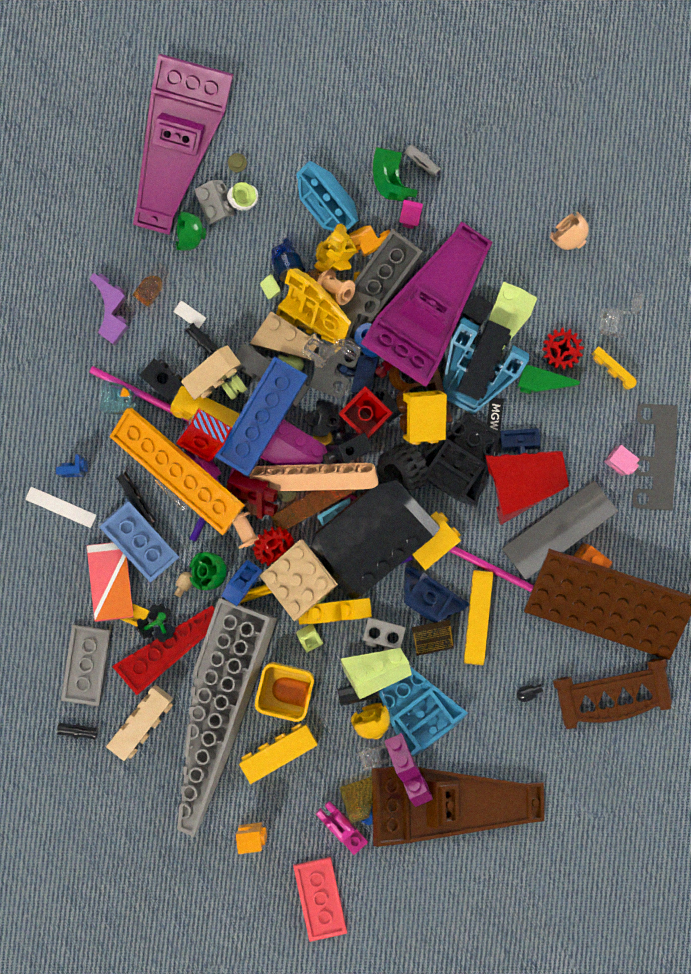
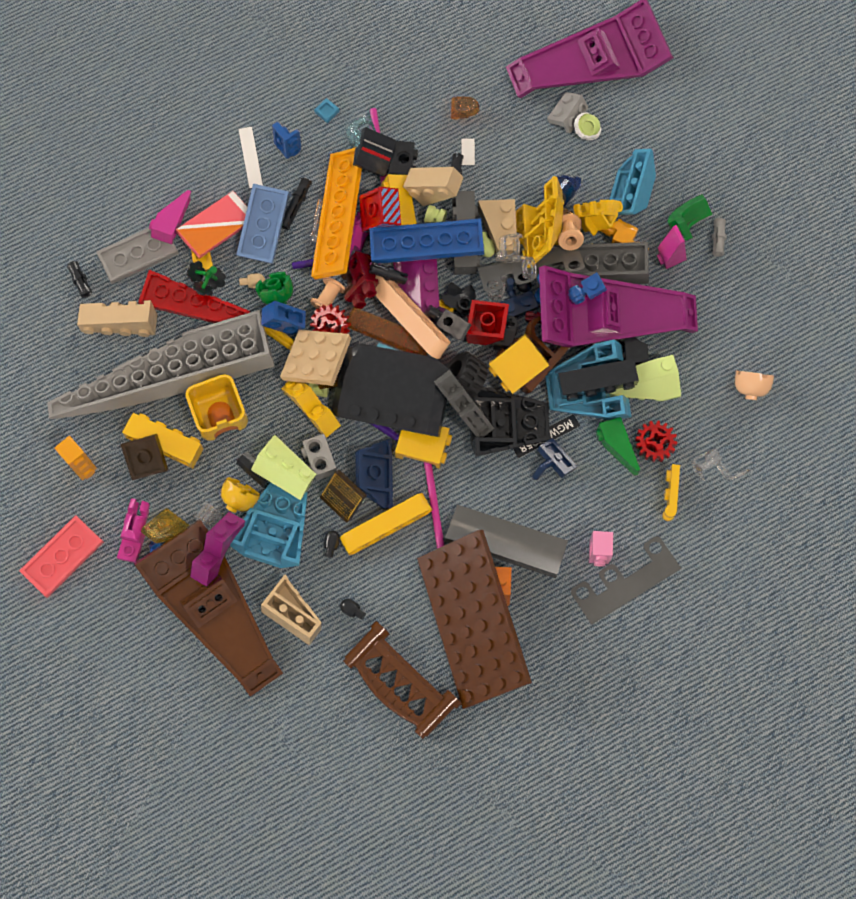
camera: 60 degrees right, 15 degrees down
(62, 410) = (326, 110): none -> dark azure tile
(78, 620) = (170, 219): none -> dark pink slope
(112, 327) = (436, 90): medium lavender arch -> none
(142, 401) = (374, 152): none -> black slope
(189, 231) = (530, 105): green cylinder -> none
(237, 162) = (609, 108): olive plate -> none
(266, 467) = (388, 273): none -> black pin
(270, 287) = (534, 192): yellowish green slope -> none
(284, 778) = (144, 457): none -> dark brown tile
(286, 496) = (380, 310): olive plate -> none
(309, 638) = (275, 404): yellowish green slope -> none
(405, 309) = (592, 287): none -> blue plate
(430, 488) = (463, 404): none -> dark grey slope
(462, 672) = (331, 542): none -> black cylinder
(501, 743) = (290, 611): none -> tan wedge
(526, 480) = (526, 482): red wedge -> none

